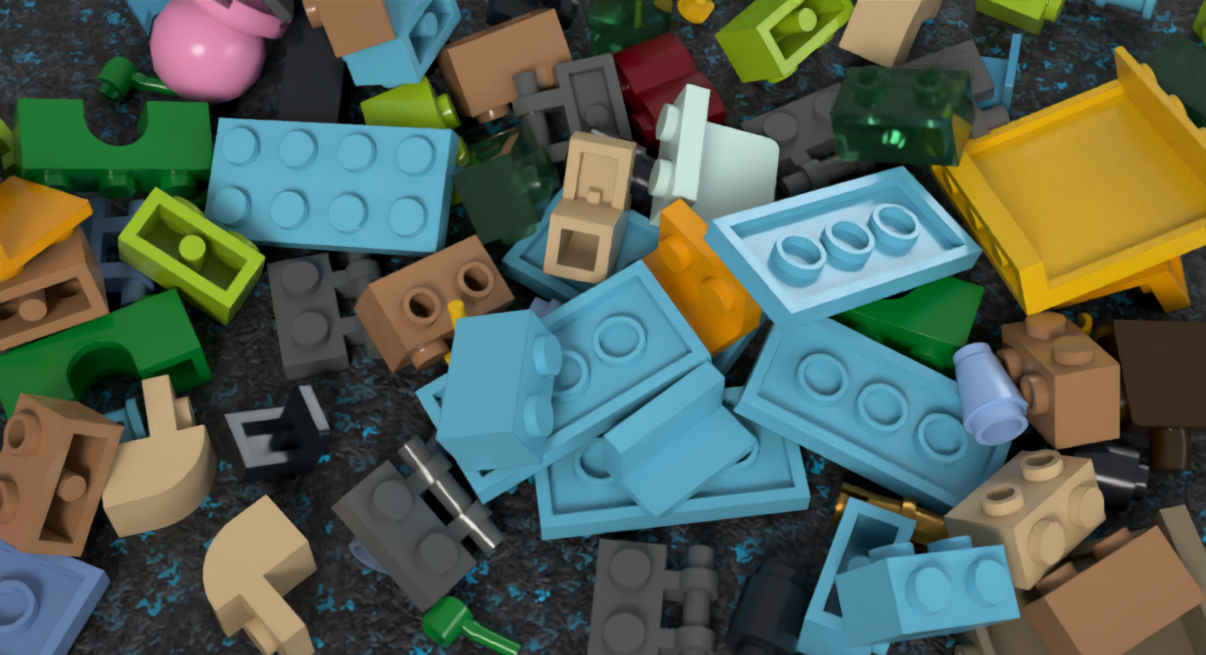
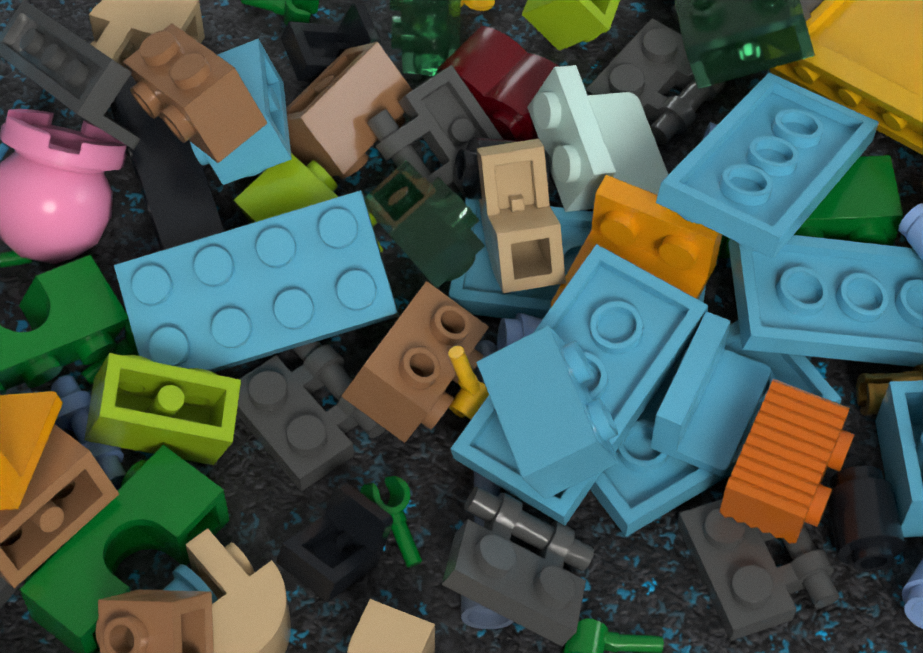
camera: 25 degrees left, 0 degrees up
(346, 439) = (398, 501): none -> green hand
(712, 531) = (785, 460): none -> orange brick

